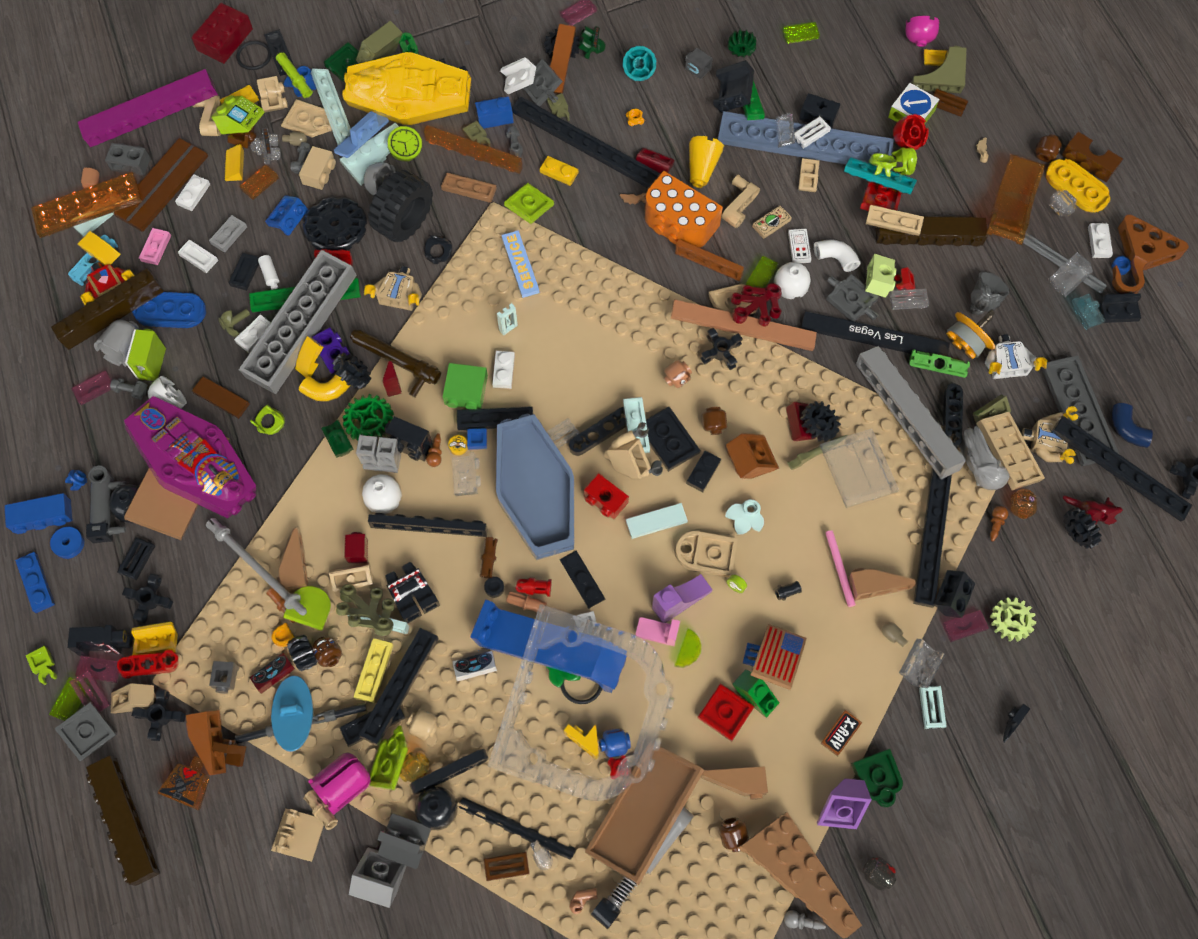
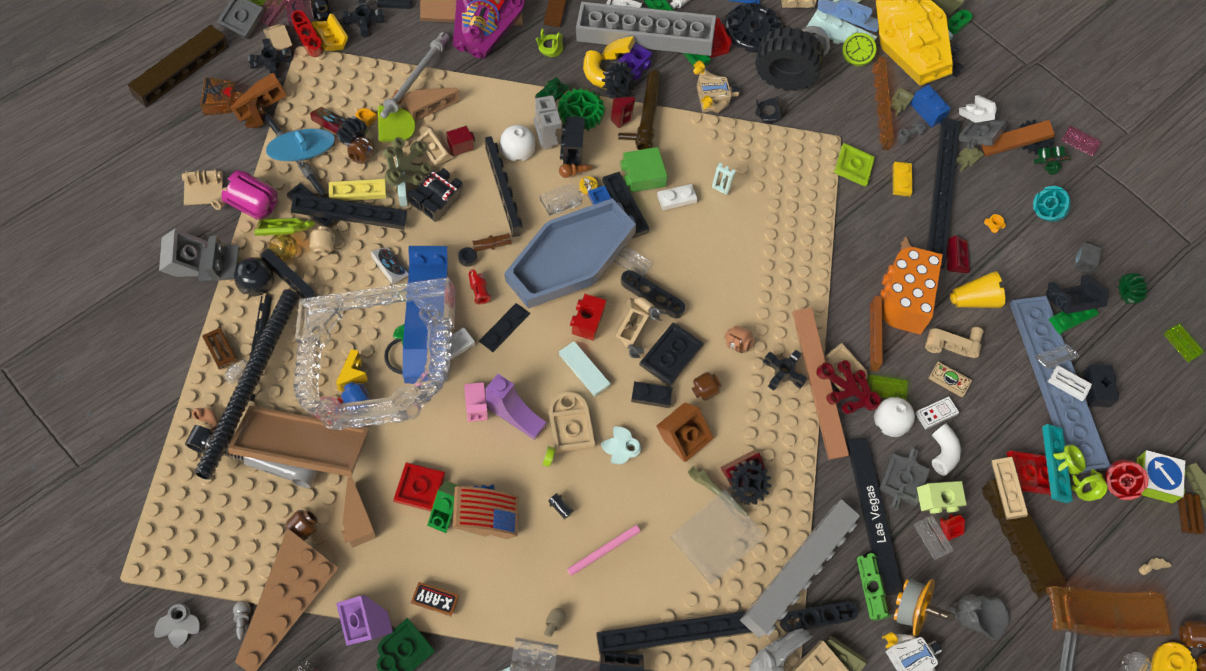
camera: 60 degrees right, 5 degrees down
(221, 670) = (314, 86): flat silver brick -> none
(468, 187) = (845, 114): medium nougat tile -> none
(520, 264) = (787, 176): light blue tile -> none
(524, 601) = (462, 286): nougat axle -> none
(565, 845) = (246, 385): none -> black piece
(634, 415) = (673, 318): light aqua tile -> none
(689, 650) = (468, 436): clear neon green tile -> none
(808, 175) = (1021, 398): tan slope -> none
(876, 583) = (598, 583): medium nougat slope -> none

